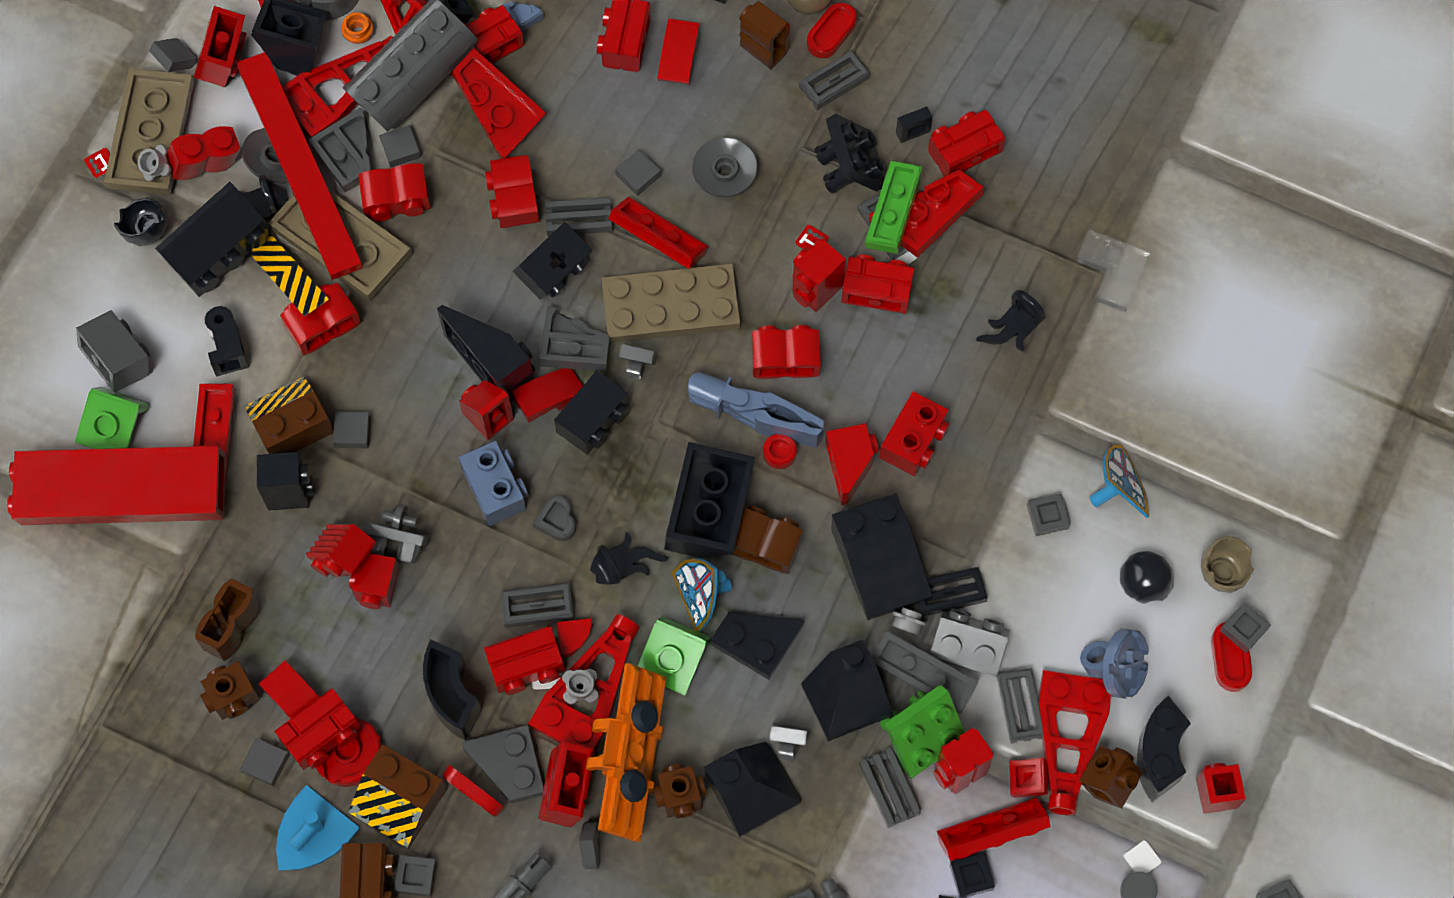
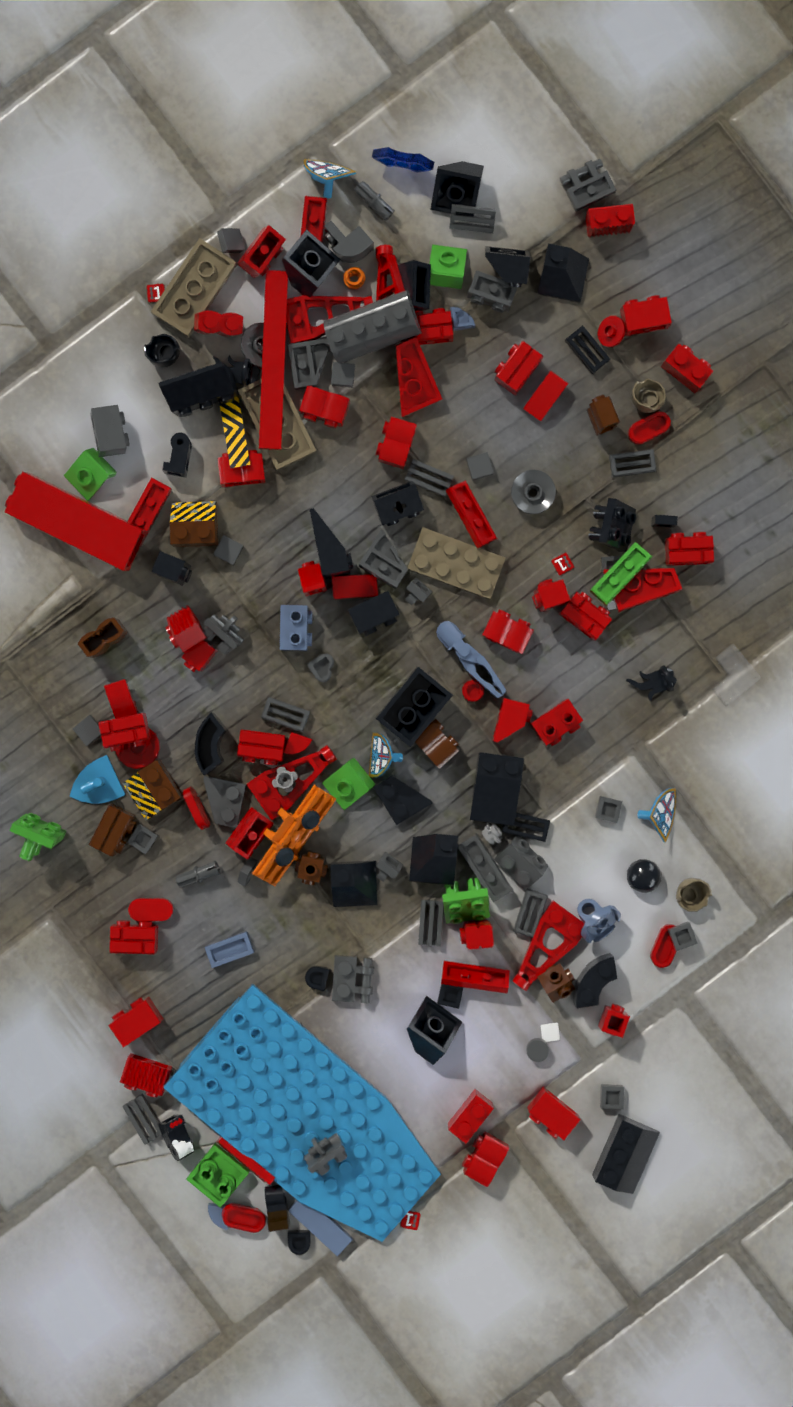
camera: 25 degrees right, 20 degrees up
(147, 161) = (185, 315): light grey plate -> none
(228, 691) = (93, 681): reddish brown brick -> none
(617, 563) = (343, 713): black piece -> none
(1028, 777) = (511, 957): red tile -> none

